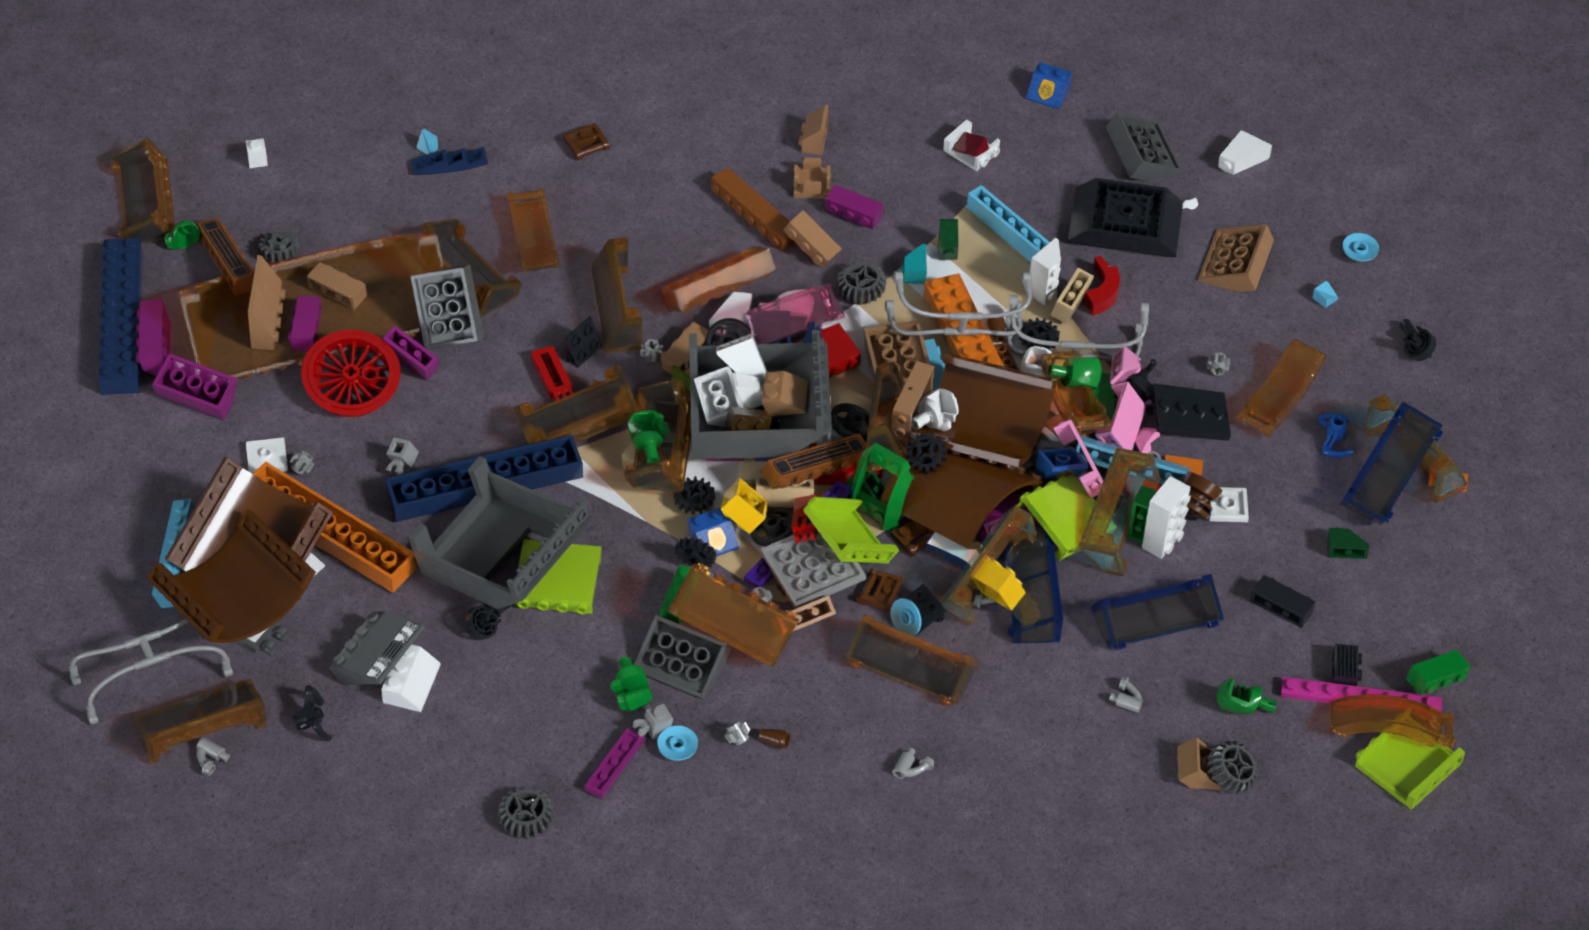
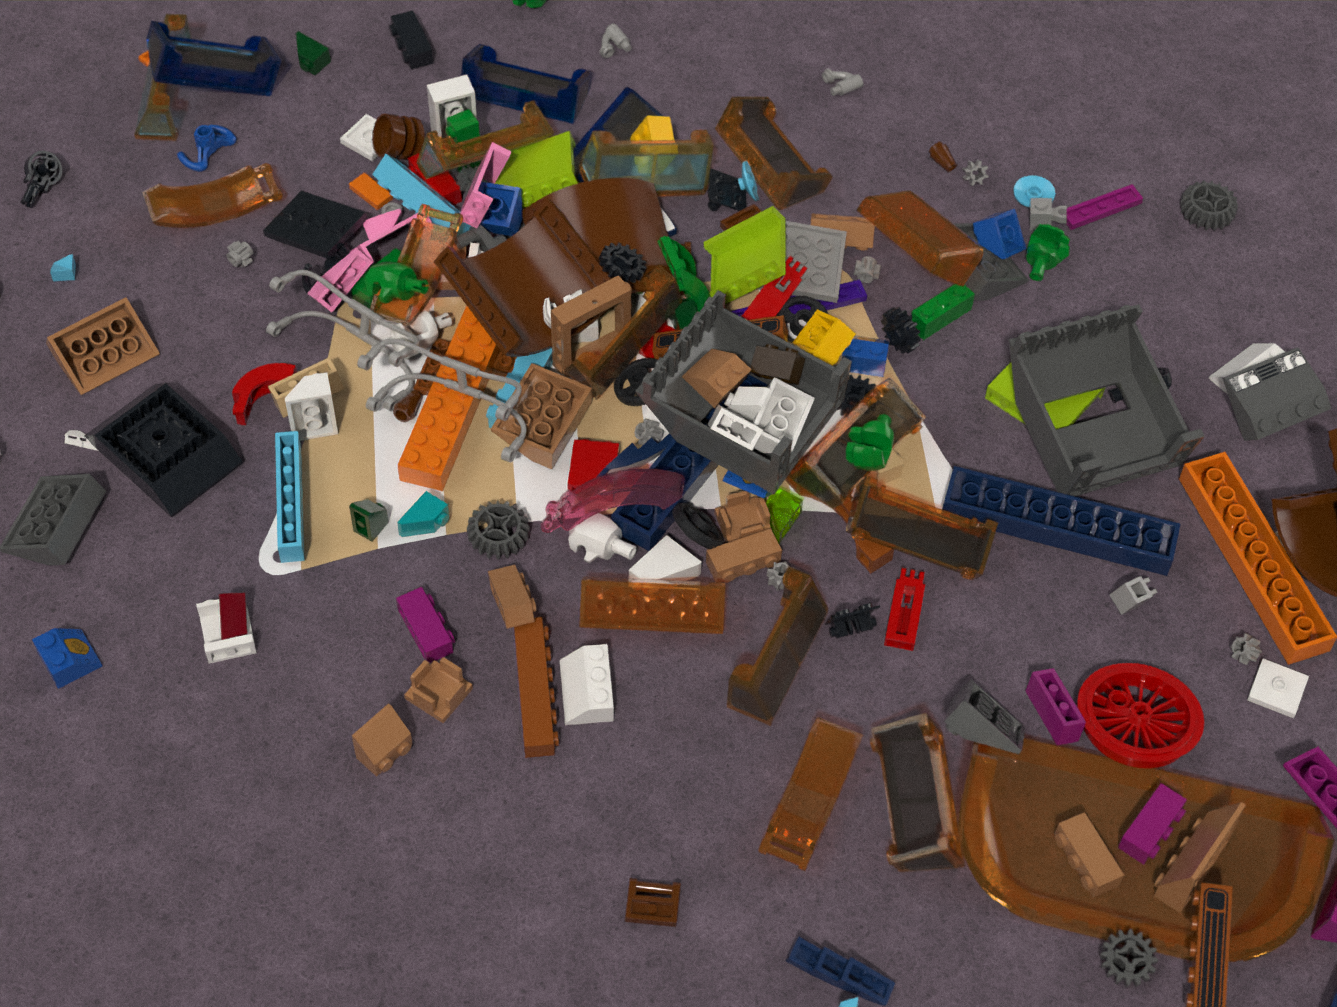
camera: 145 degrees left, 5 degrees up
(677, 679) = (1000, 233): none -> blue slope
(719, 227) = (587, 686): none -> white slope
(1039, 330) = (376, 376): black gear -> none

